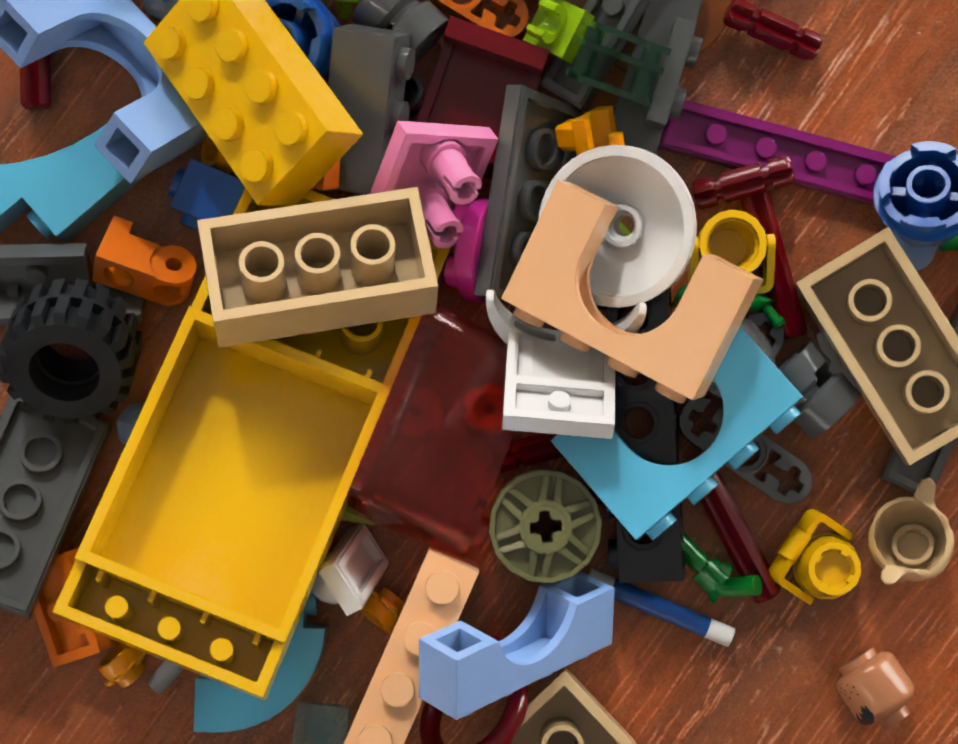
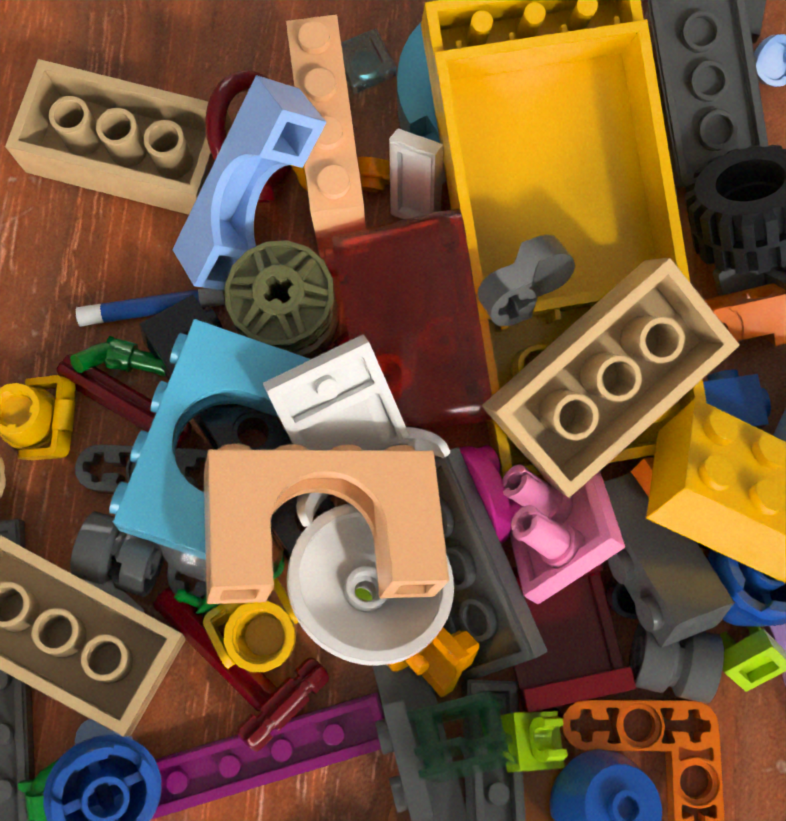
camera: 155 degrees right, 10 degrees down
(313, 398) = (513, 290): none -> dark grey piece

